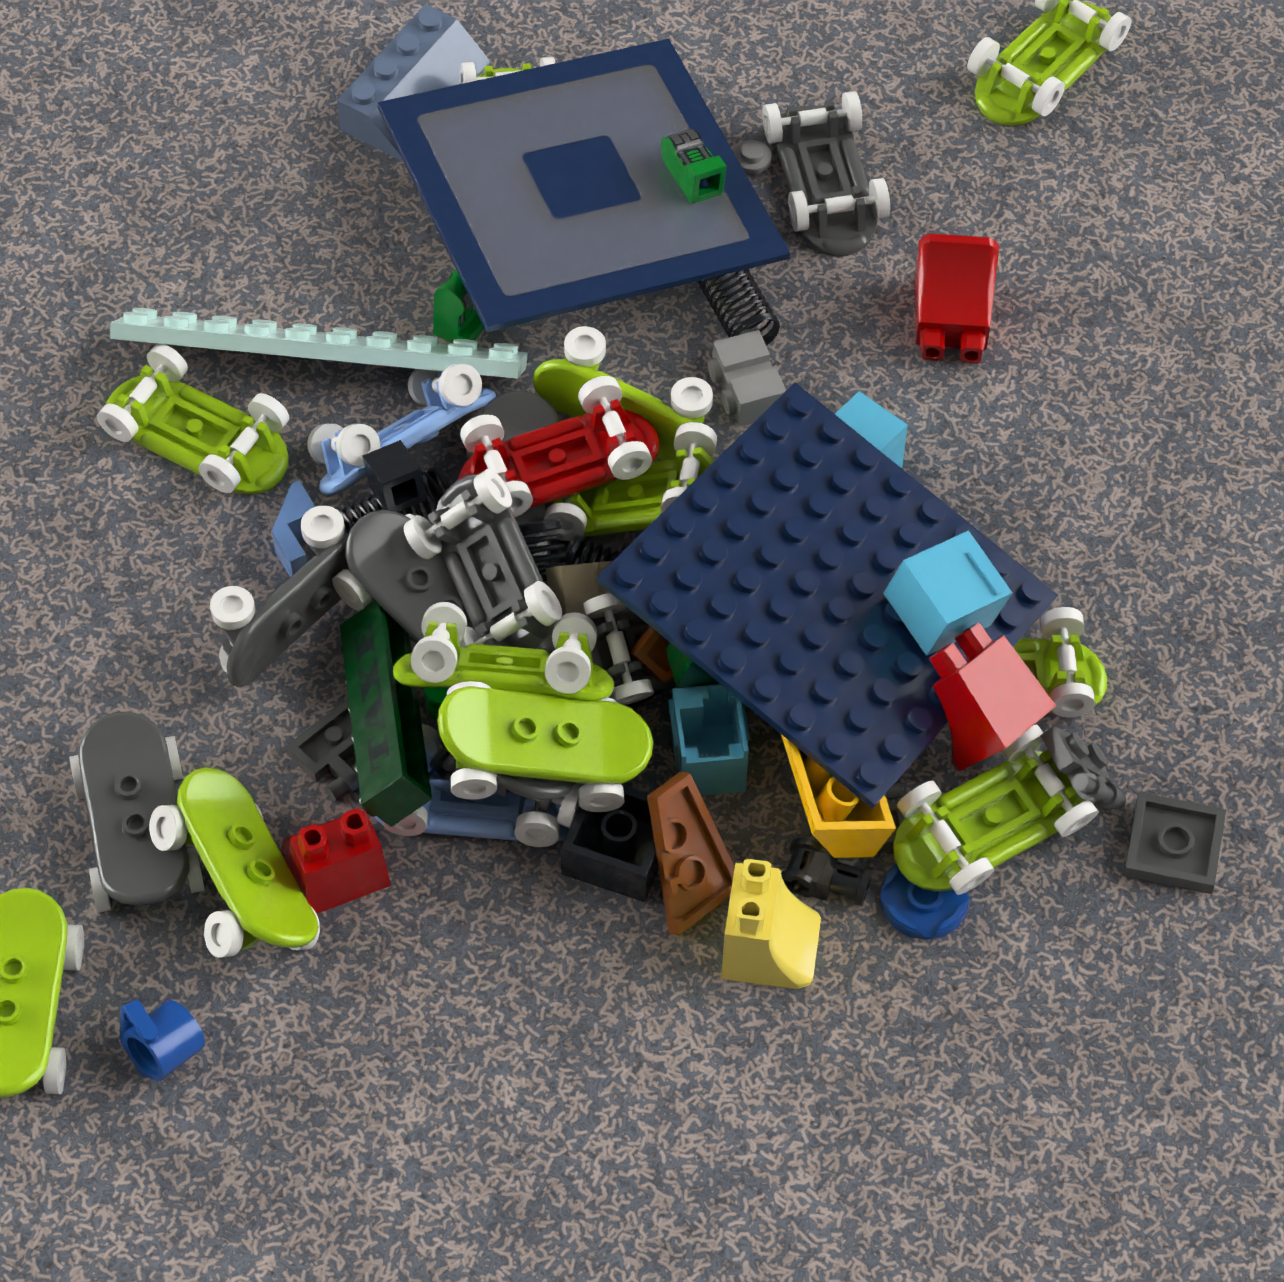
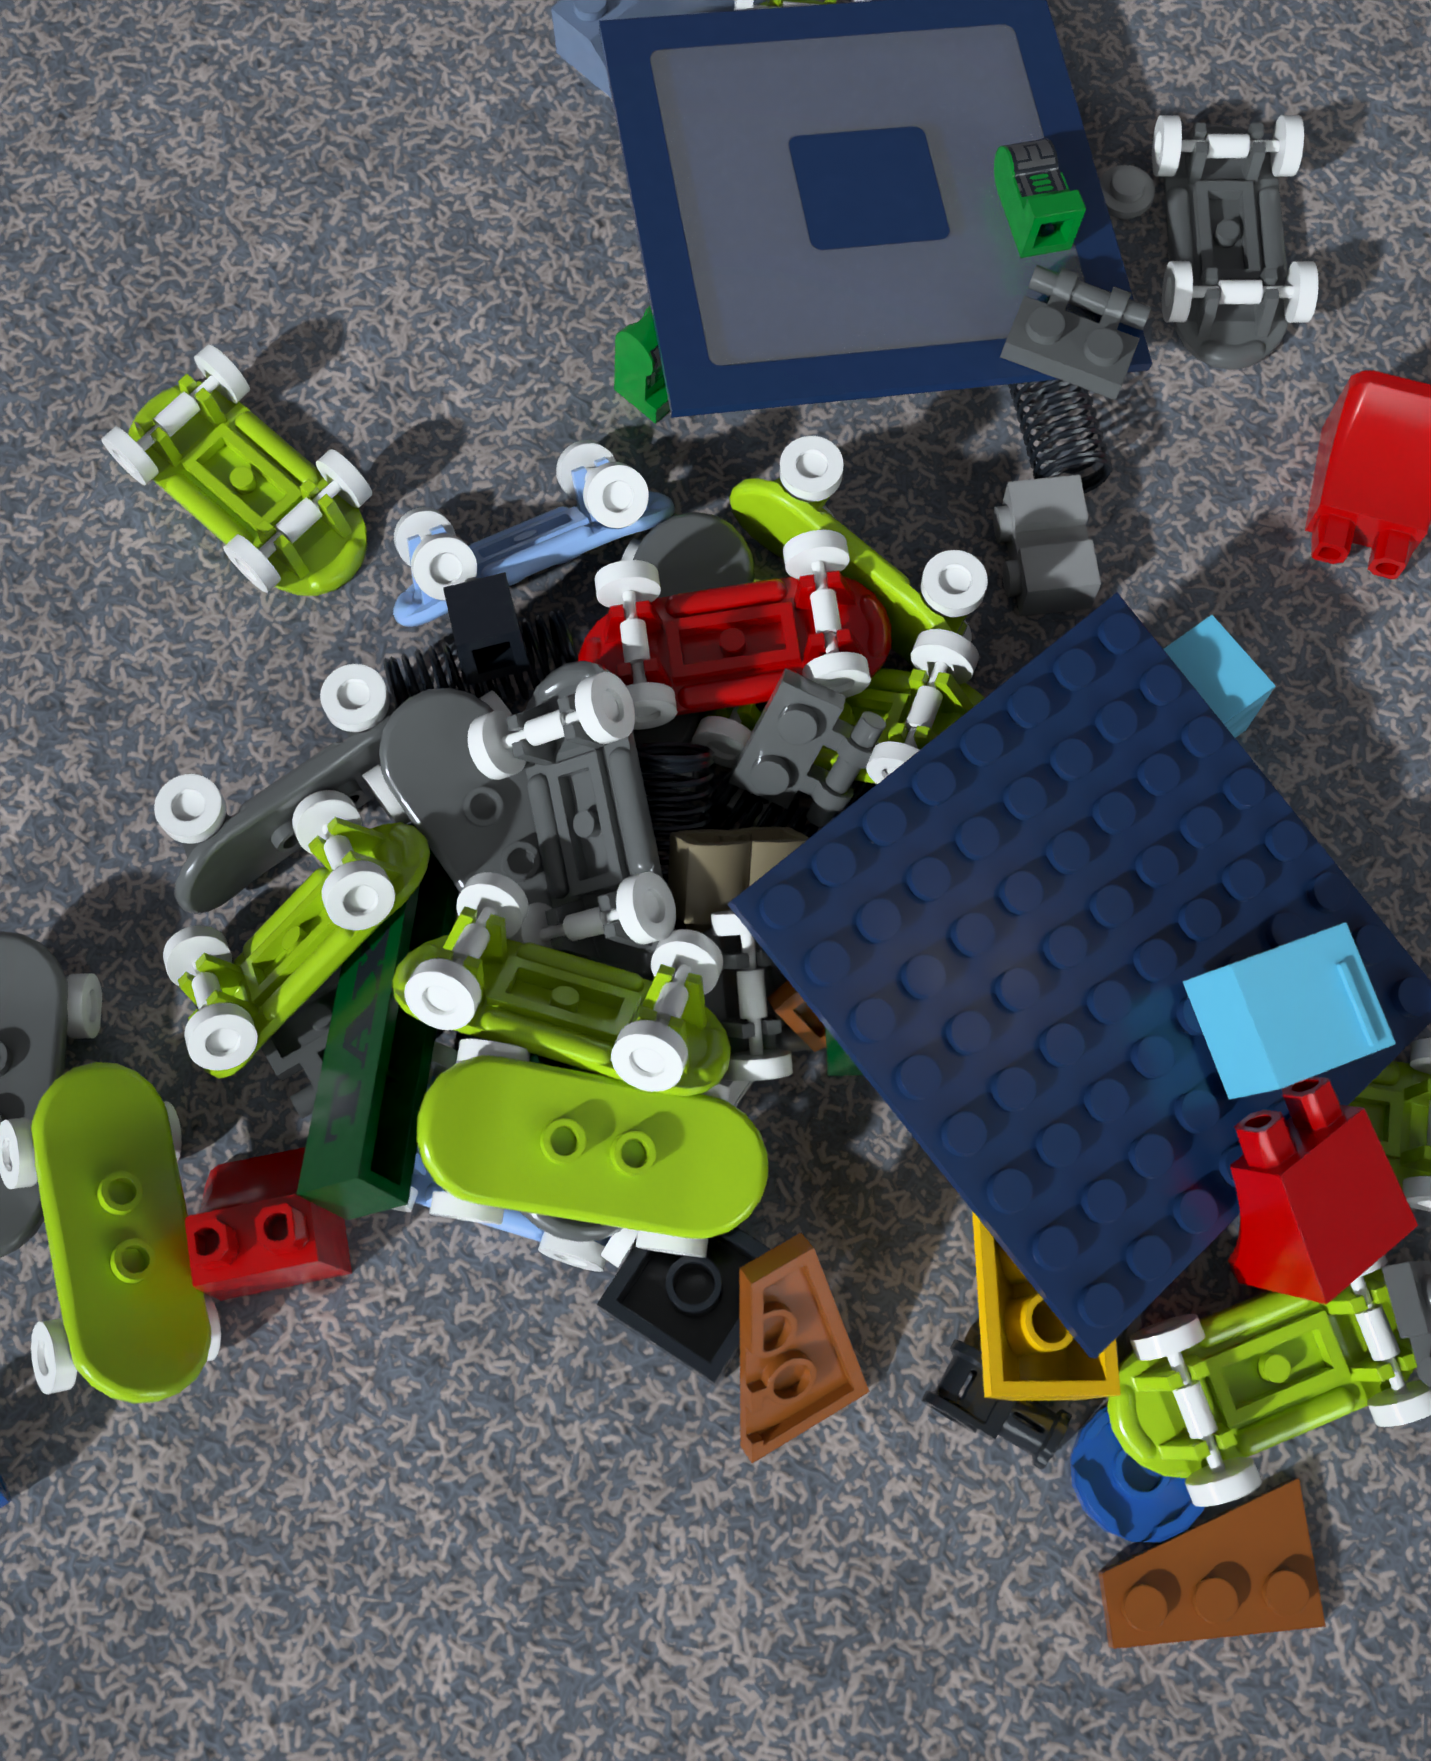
camera: 15 degrees right, 15 degrees up
(288, 528) = (346, 642): medium blue slope -> none
(306, 342) = (433, 382): light aqua plate -> none
(314, 686) = (306, 938): none -> piece
(608, 501) = (790, 736): none -> dark grey plate
(710, 738) = (860, 1154): medium azure piece -> none
(736, 250) = (1071, 345): none -> dark grey plate
(768, 930) = (891, 1499): light yellow hips -> none
(985, 945) = (1220, 1579): none -> dark orange wing

